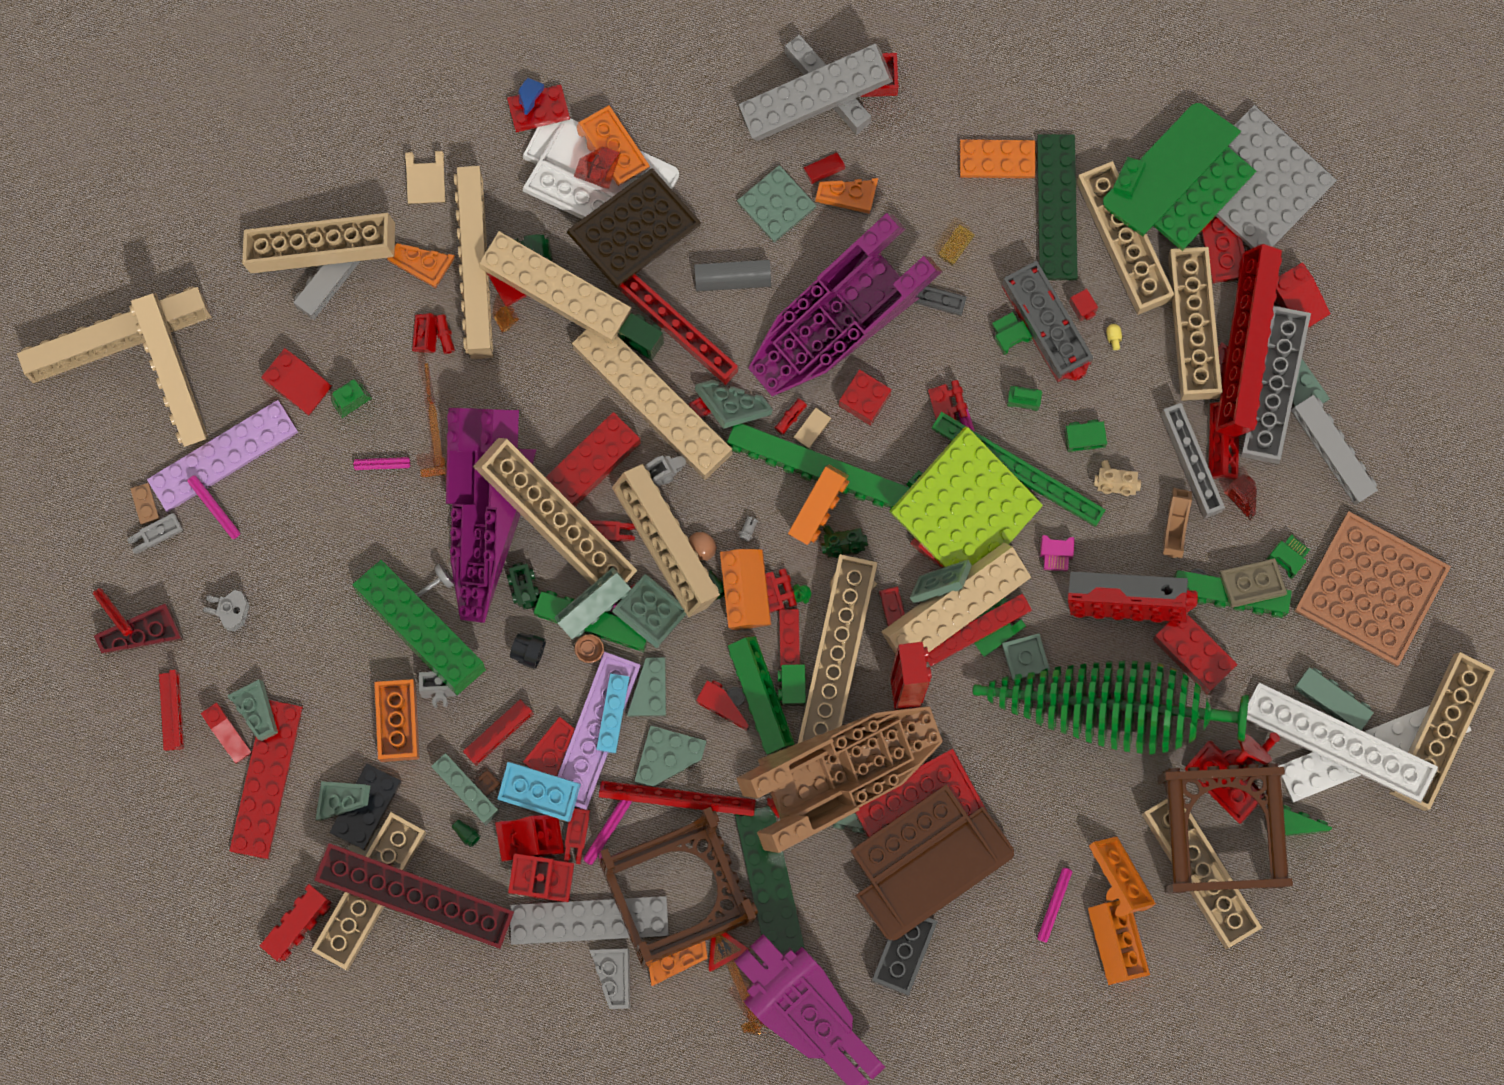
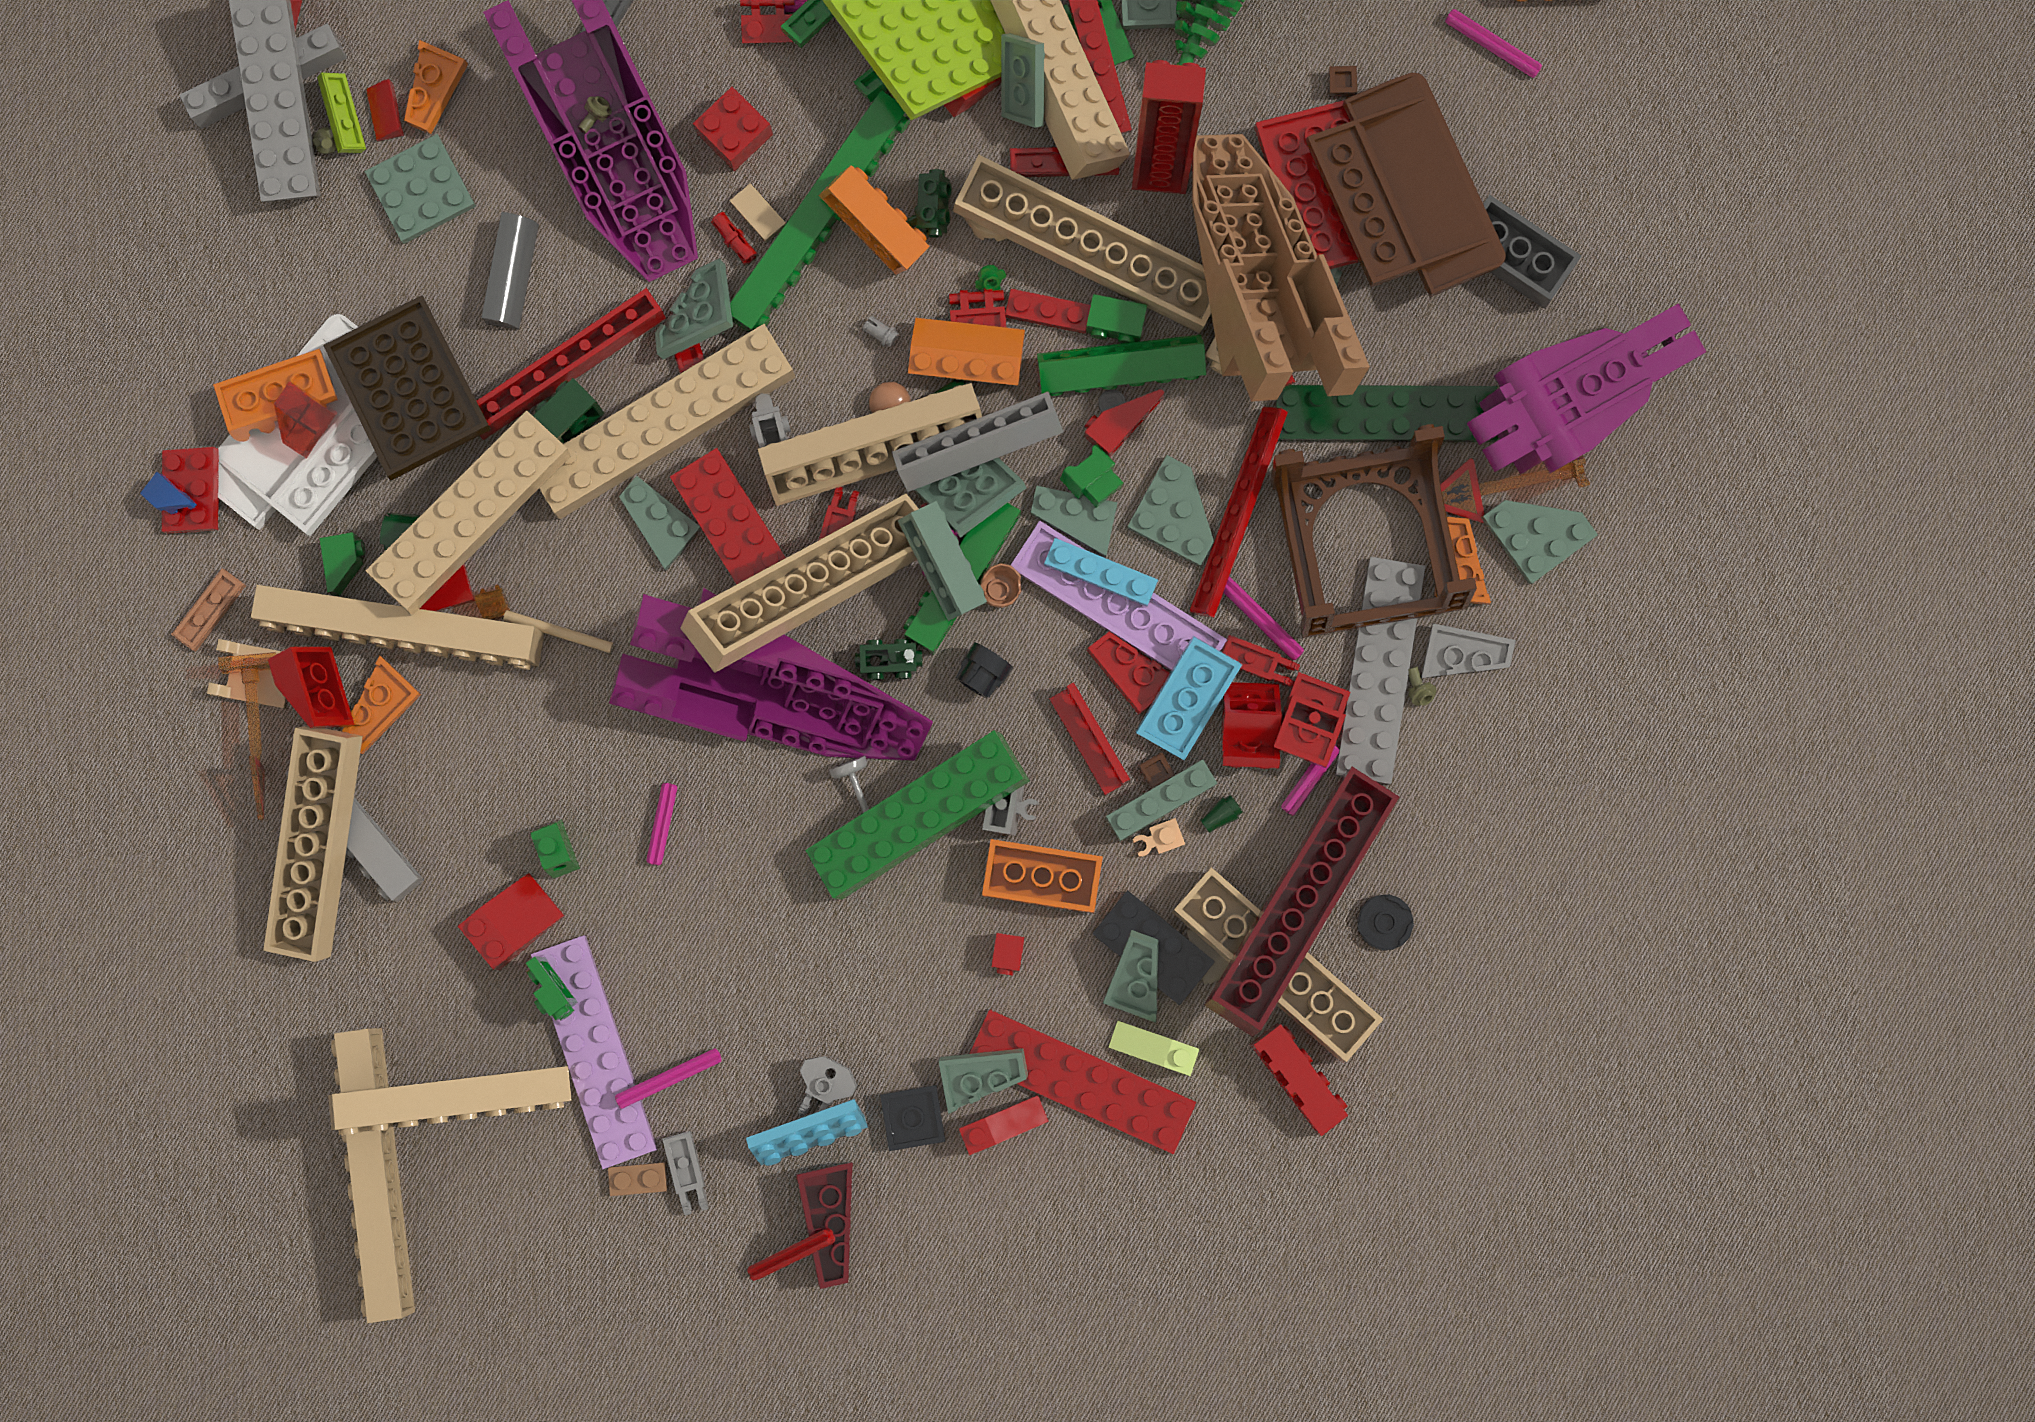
camera: 75 degrees left, 5 degrees up
(171, 711) = (952, 1199): red fence -> none
(192, 600) = (804, 1133): none -> medium azure plate
(219, 672) = (912, 1118): none -> black plate
(251, 420) = (553, 996): none -> green plate
(297, 823) = (1153, 1048): none -> yellowish green slope
(341, 710) = (1007, 953): none -> red brick
(415, 961) = (1385, 922): none -> black tile
(421, 218) = (312, 685): none -> red slope
(424, 333) = (484, 723): red slope -> none
(426, 175) = (249, 668): none -> clear orange piece
(439, 462) = (689, 741): clear orange piece -> none
(442, 798) = (1163, 837): none -> light nougat plate
(444, 334) = (493, 694): red pin -> none
(462, 140) = (208, 610): none -> nougat tile
(496, 365) = (559, 632): none -> tan bar
(500, 887) = (1306, 785): none -> dark pink axle
(512, 215) = (341, 560): none -> green slope
(578, 951) = (1420, 692): none -> olive plate
(585, 413) = (659, 521): none -> sand green wing
(677, 694) = (1093, 477): none -> green piece
(681, 609) = (977, 442): none -> light grey brick
(707, 1010) = (1537, 535): none -> sand green plate
(795, 135) = (324, 141): none -> olive plate
(815, 140) = (341, 112): none -> lime tile
(854, 305) = (598, 110): none -> olive plate
(1000, 804) = (1342, 80): none -> reddish brown plate

